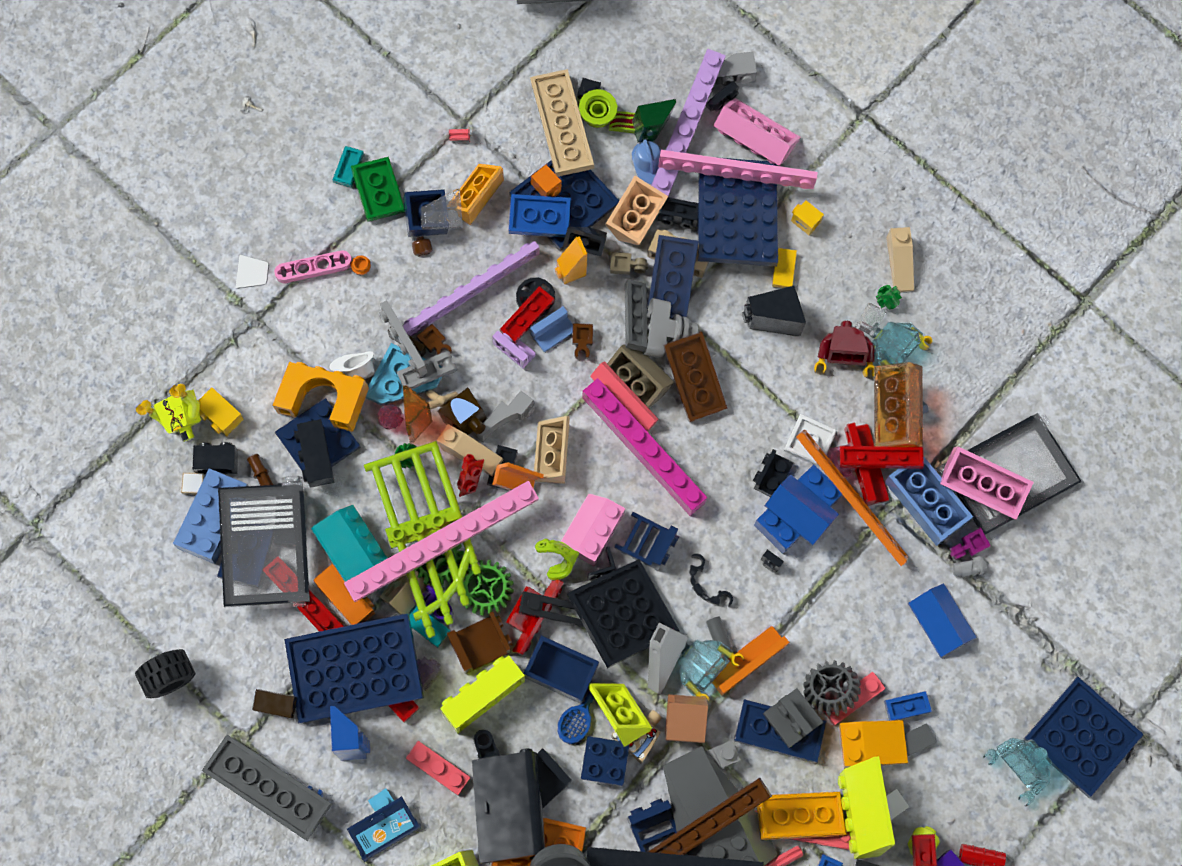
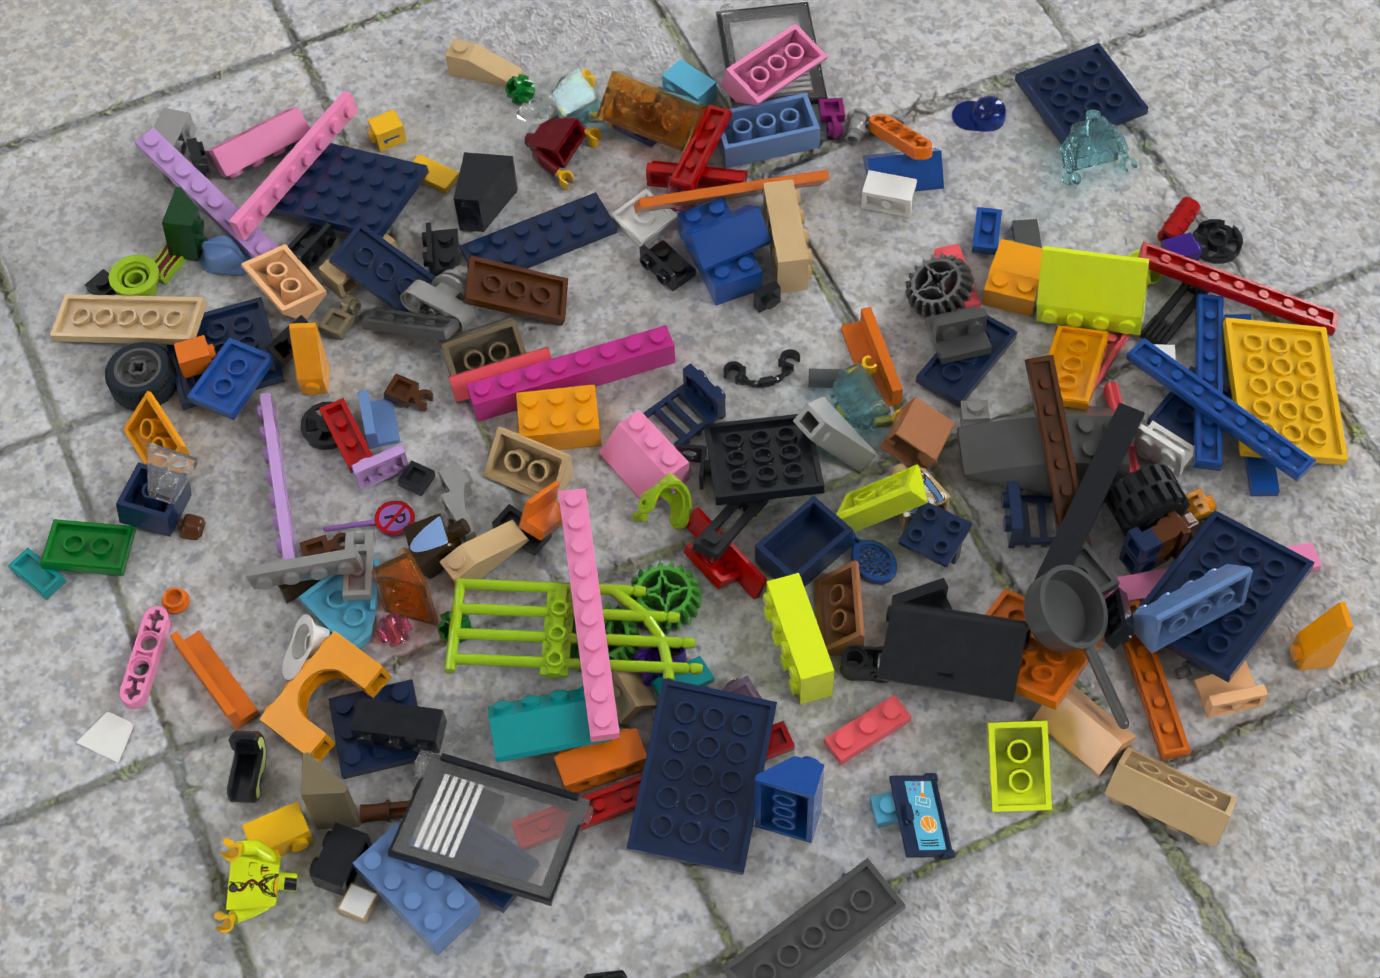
camera: 60 degrees left, 15 degrees down
(247, 428) = (326, 796): none -> dark tan slope
(255, 370) = (247, 766): none -> black animal
(274, 703) = (705, 892): dark brown tile -> none
(313, 318) = (216, 678): none -> orange fence
(459, 134) = (74, 434): coral piece -> none
(470, 475) = (513, 553): red hinge -> none
(480, 375) = (389, 519): none -> piece
(480, 643) = (730, 627): reddish brown panel -> none
(515, 377) = (416, 478): none -> black plate
(520, 153) = (138, 370): none -> black wheel
(521, 715) = (840, 608): none -> nougat slope
(601, 454) = (560, 417): none -> light orange brick
(716, 306) = (441, 249): none -> black bracket
(758, 372) = (545, 234): none -> dark blue plate
(828, 553) = (788, 237): none -> tan brick
(910, 616) = (888, 193): none -> white panel
(949, 422) = (690, 83): none -> medium azure brick
(966, 606) = (900, 136): none -> orange beam
(1026, 660) = (981, 115): none -> clear blue cap

